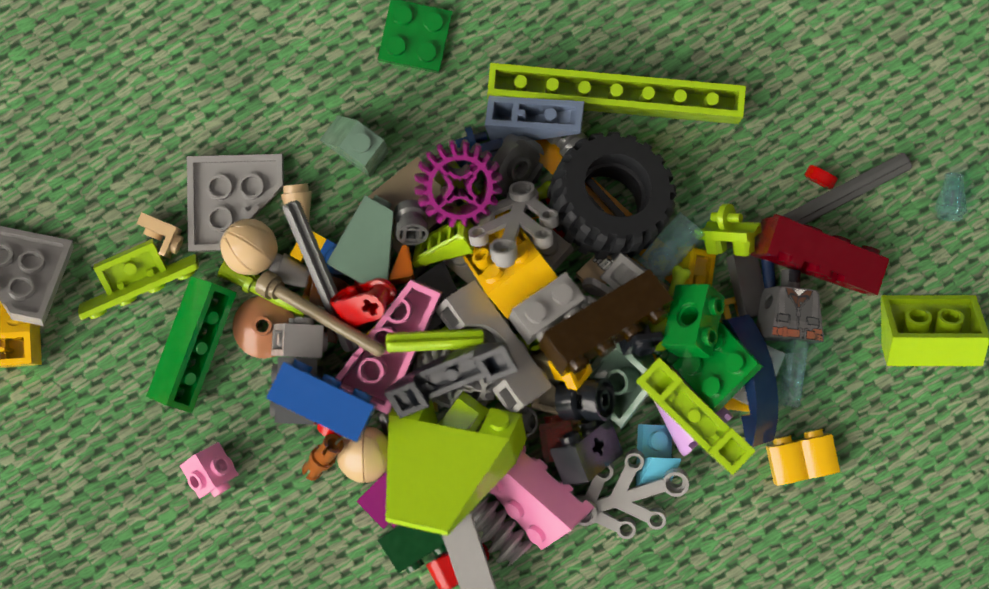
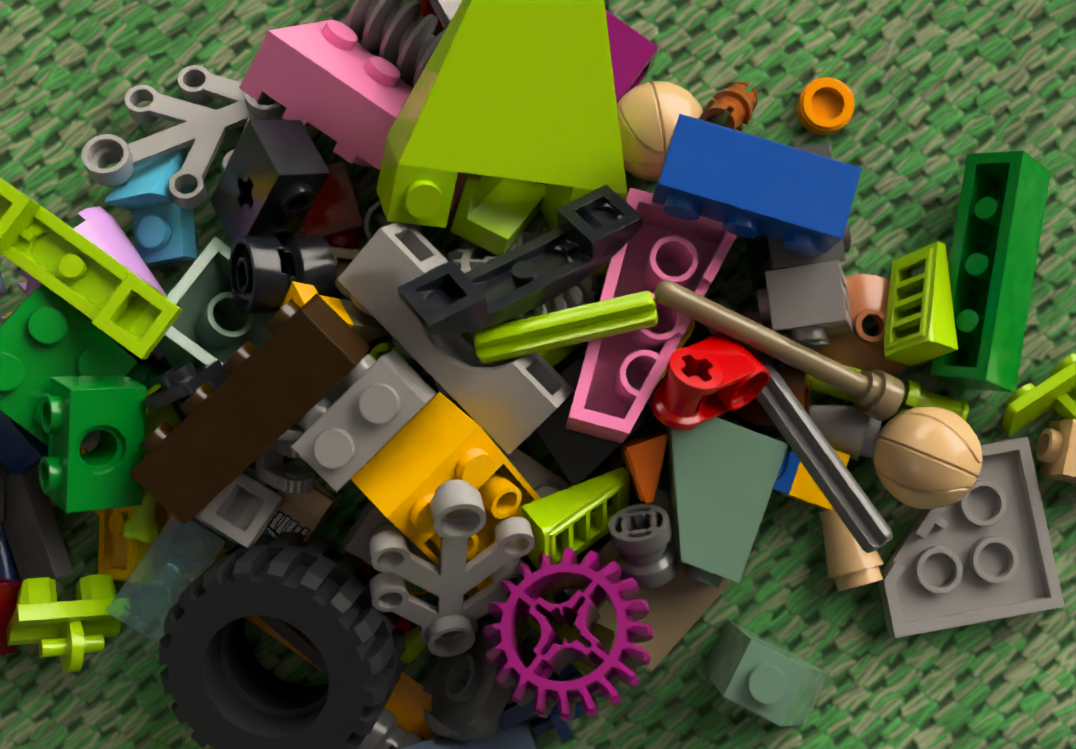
camera: 175 degrees right, 0 degrees up
(209, 471) = (915, 63): bright pink brick -> none
(235, 324) = (936, 319): none -> lime slope
(263, 458) = (825, 106): none -> light orange tile

